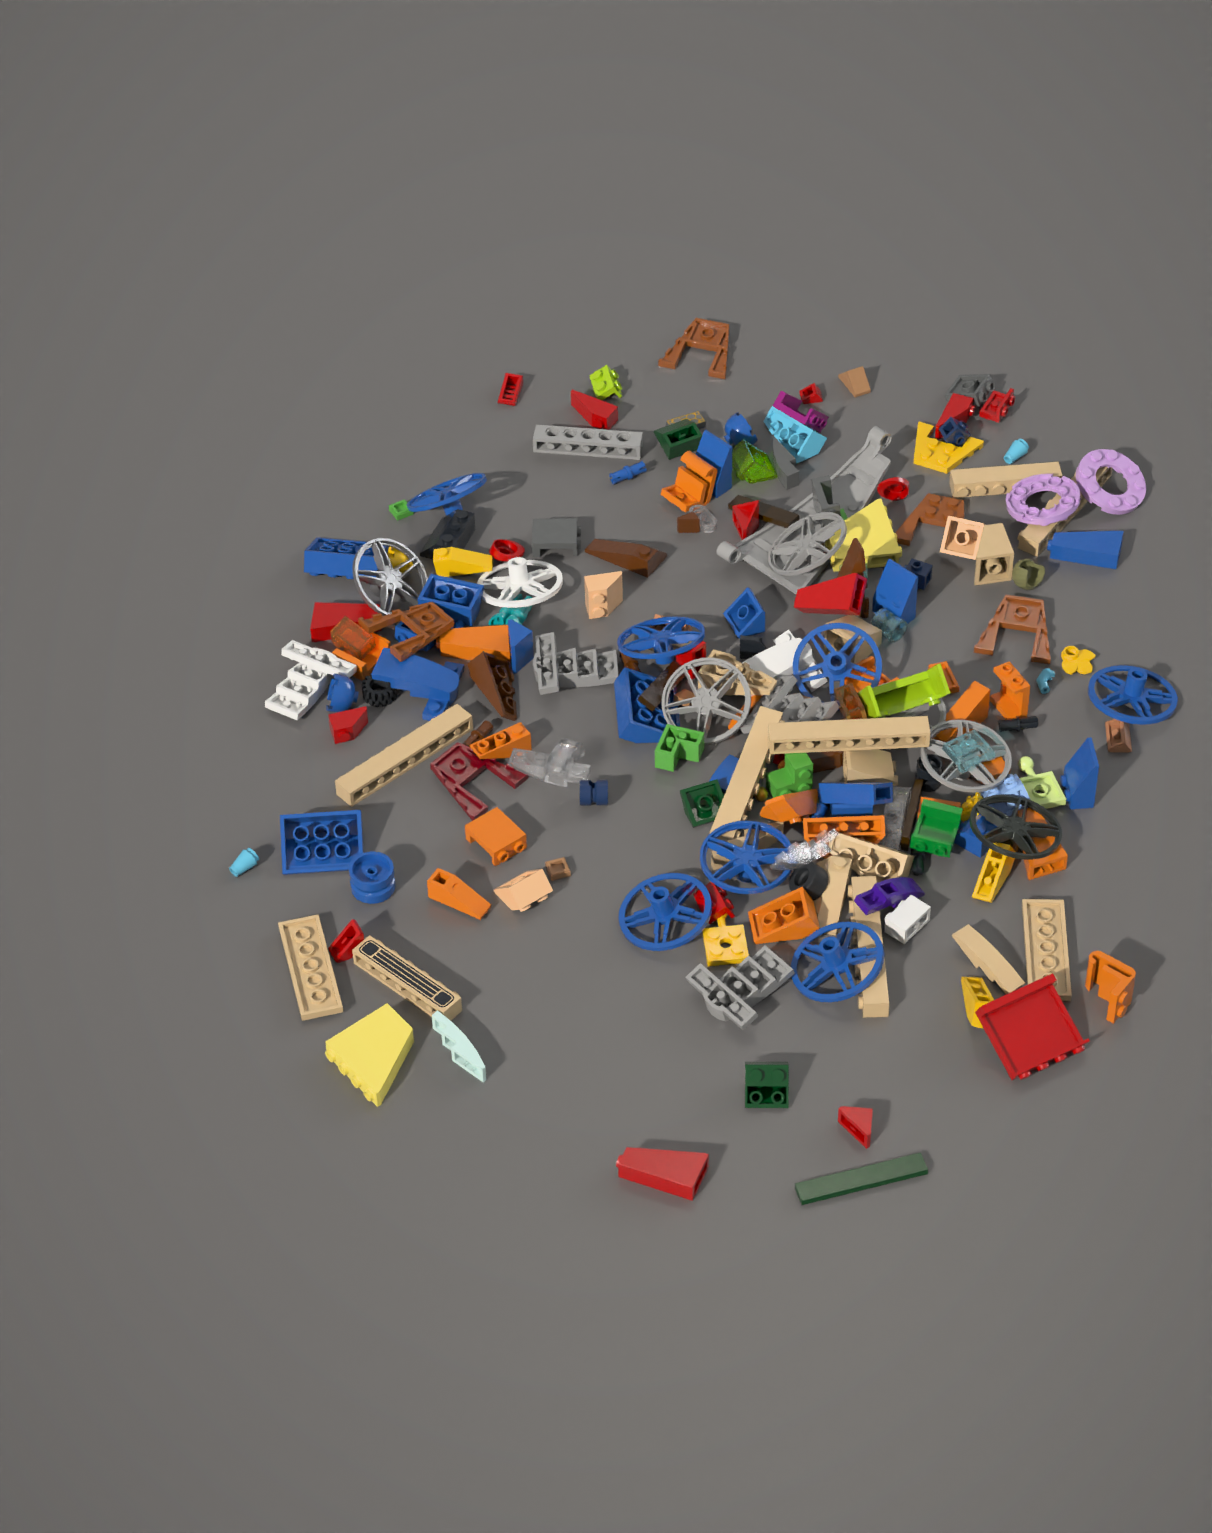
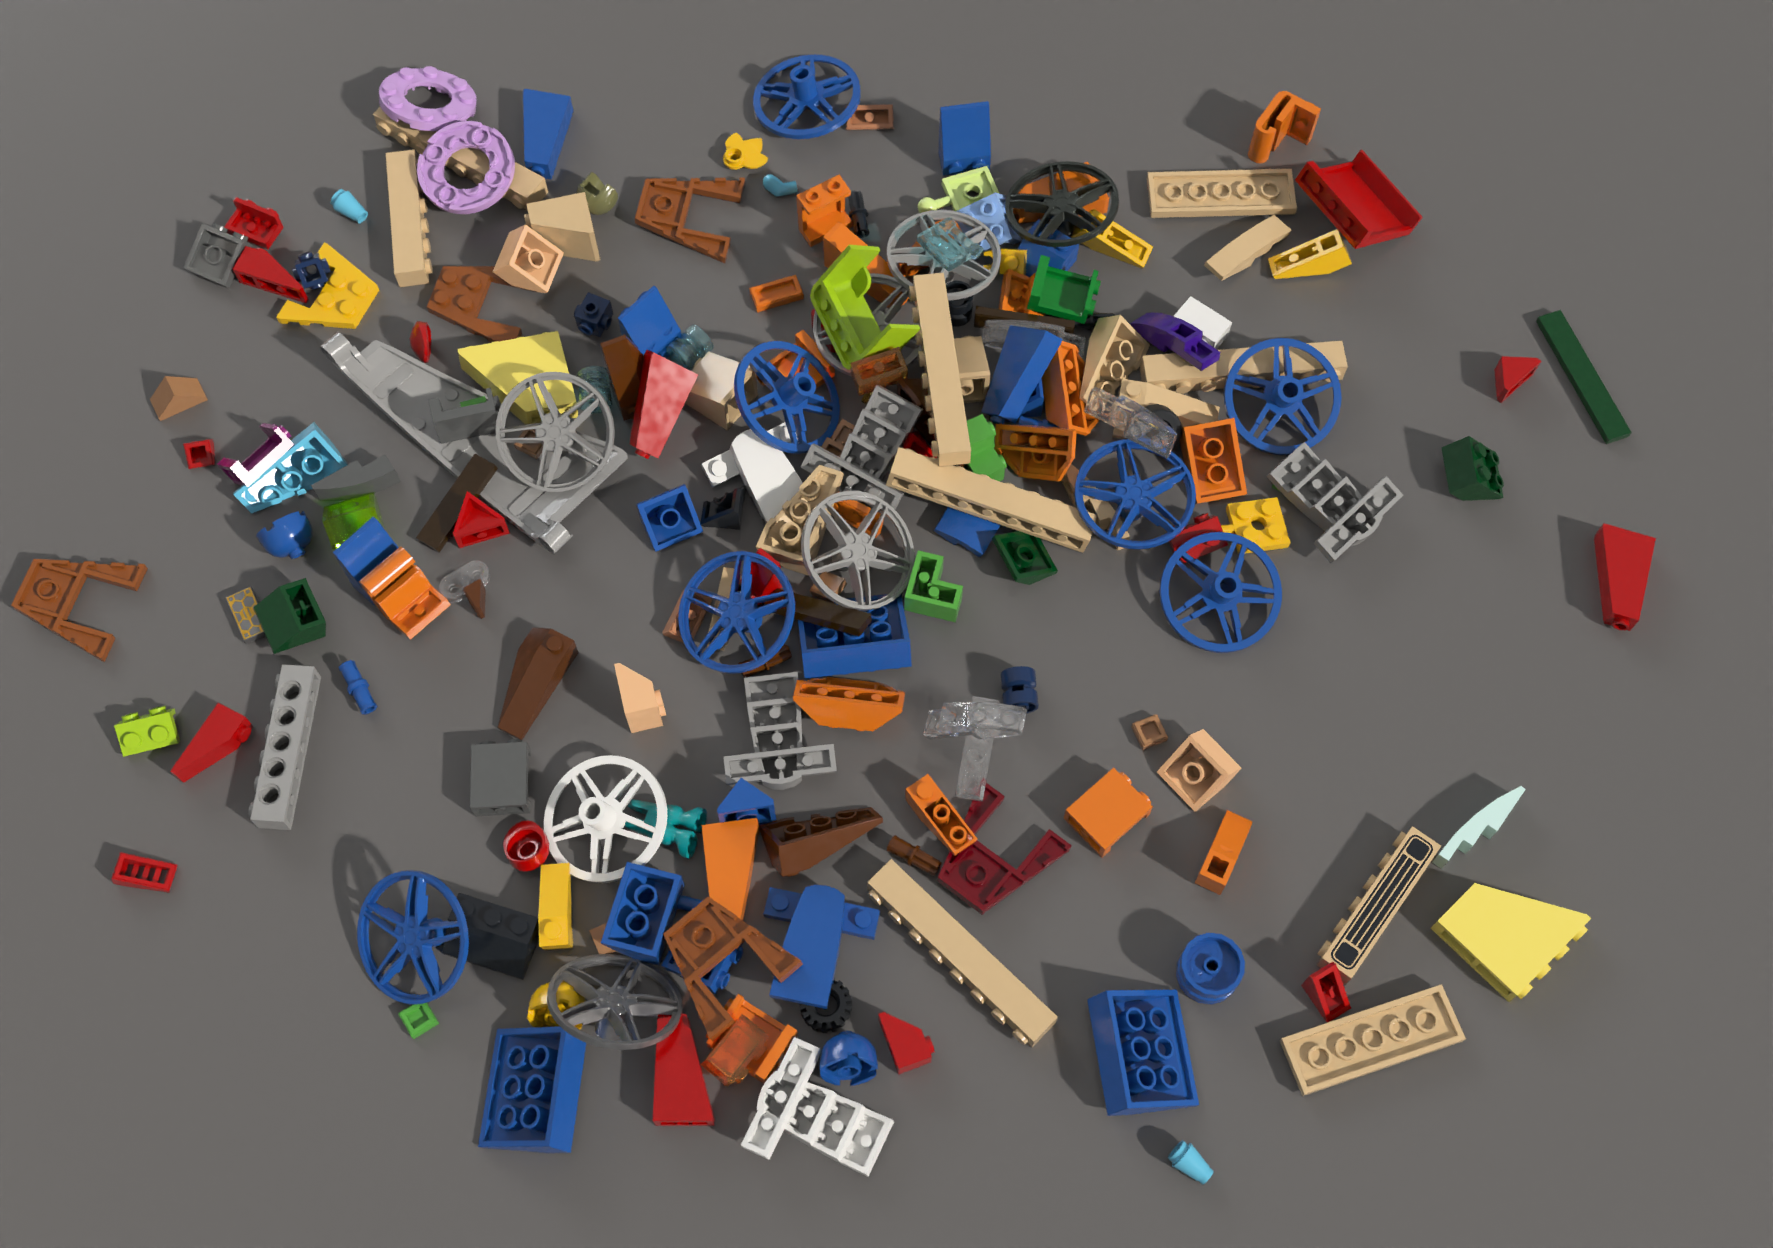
camera: 95 degrees left, 20 degrees up
(595, 698) = (848, 702): none -> orange wedge

